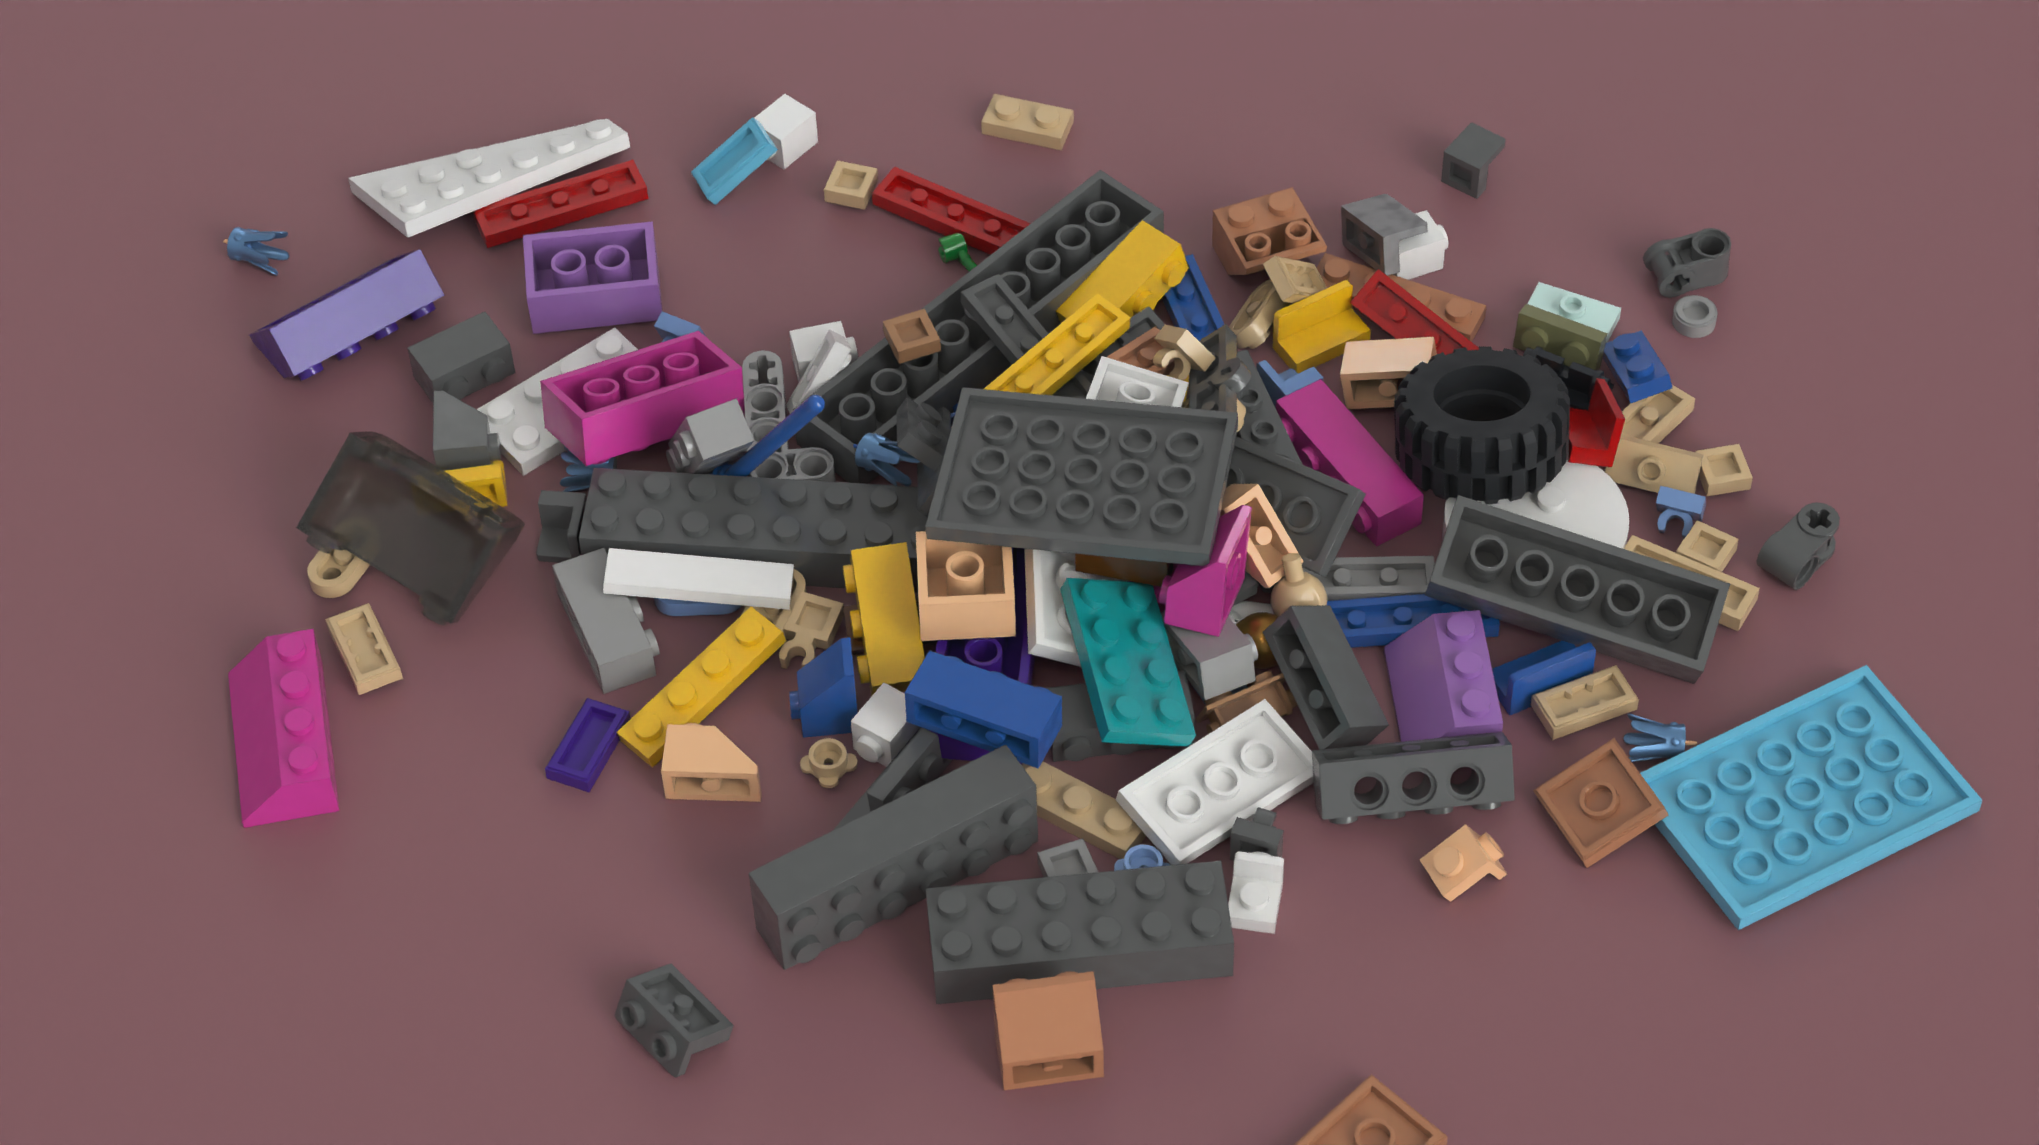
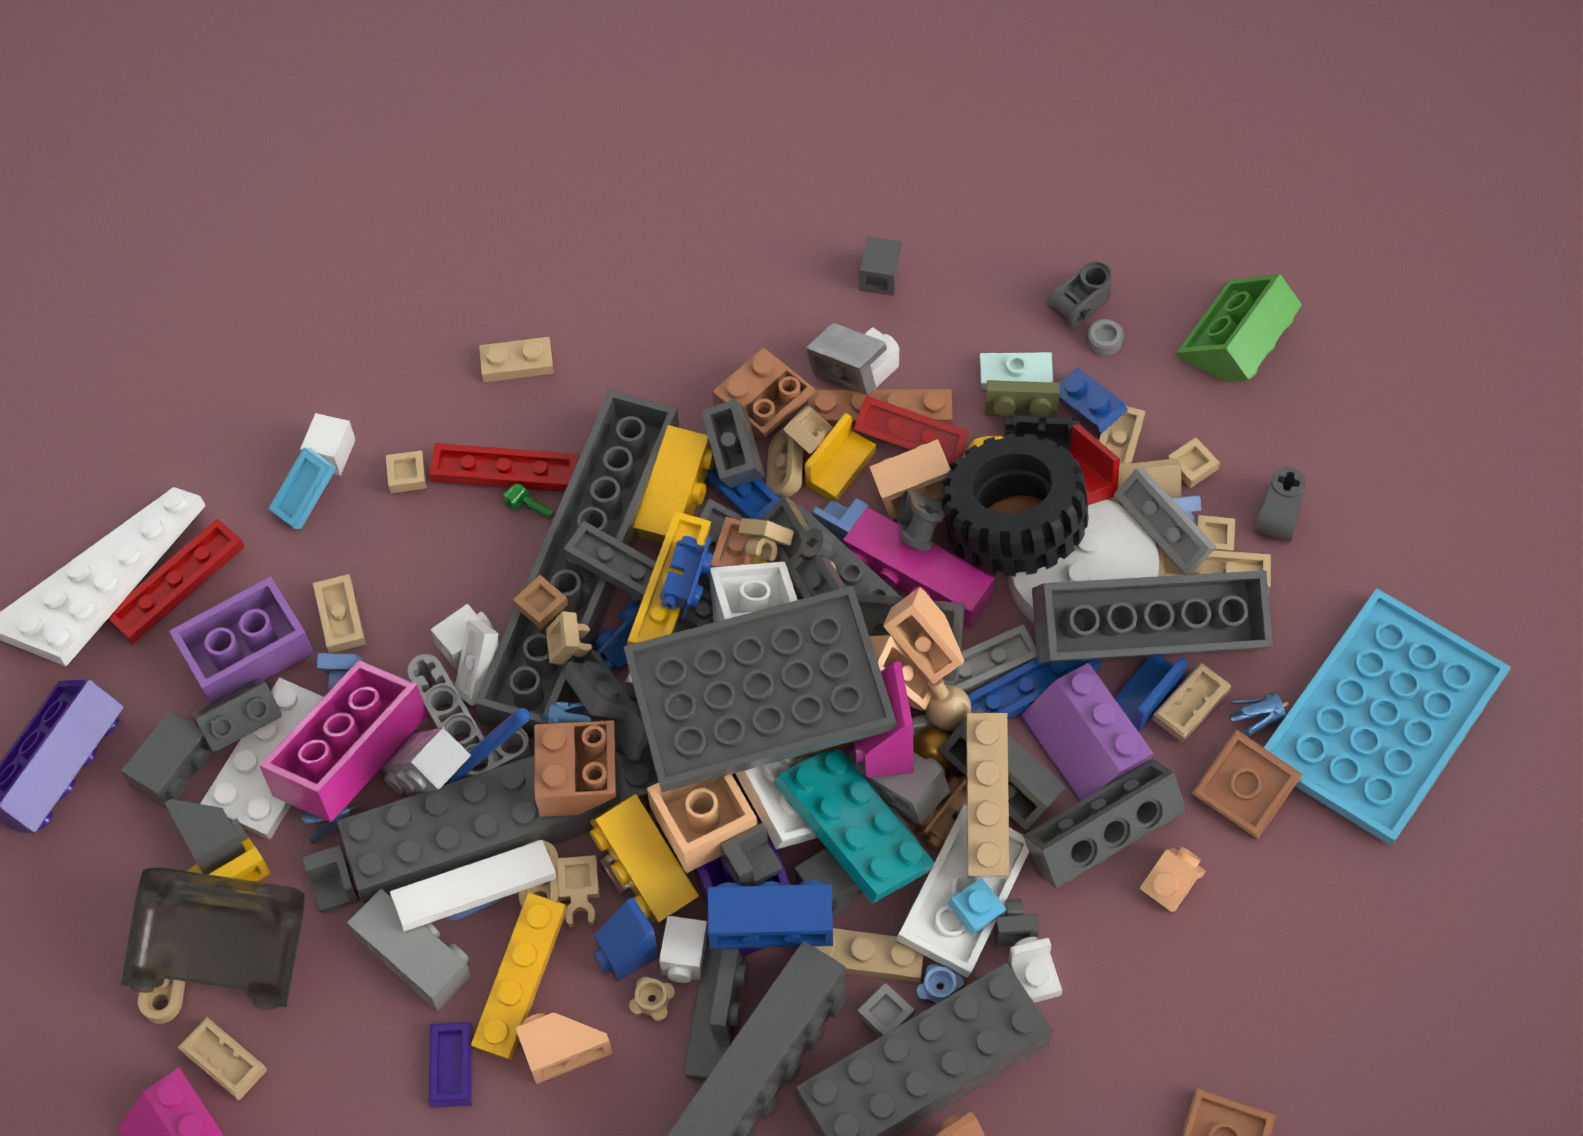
camera: 25 degrees left, 10 degrees up
(550, 340) = (236, 714): none -> dark grey bracket
(709, 290) = (339, 613): none -> tan plate
(853, 493) = (574, 766): none -> nougat slope
(918, 376) = (564, 637): none -> tan tile
(996, 643) = (750, 857): none -> dark grey panel
(1086, 344) = (683, 589): none -> blue hinge
(1203, 263) = (733, 443): none -> dark grey brick
(1220, 798) = (976, 906): none -> medium azure plate
(1283, 682) = (987, 795): none -> tan brick
(1298, 500) = (924, 635): none -> light nougat slope
(1368, 407) = (918, 519): none -> dark grey piece
(1648, 502) = (1164, 521): none -> light grey plate
(1859, 356) = (1241, 327): none -> bright green slope

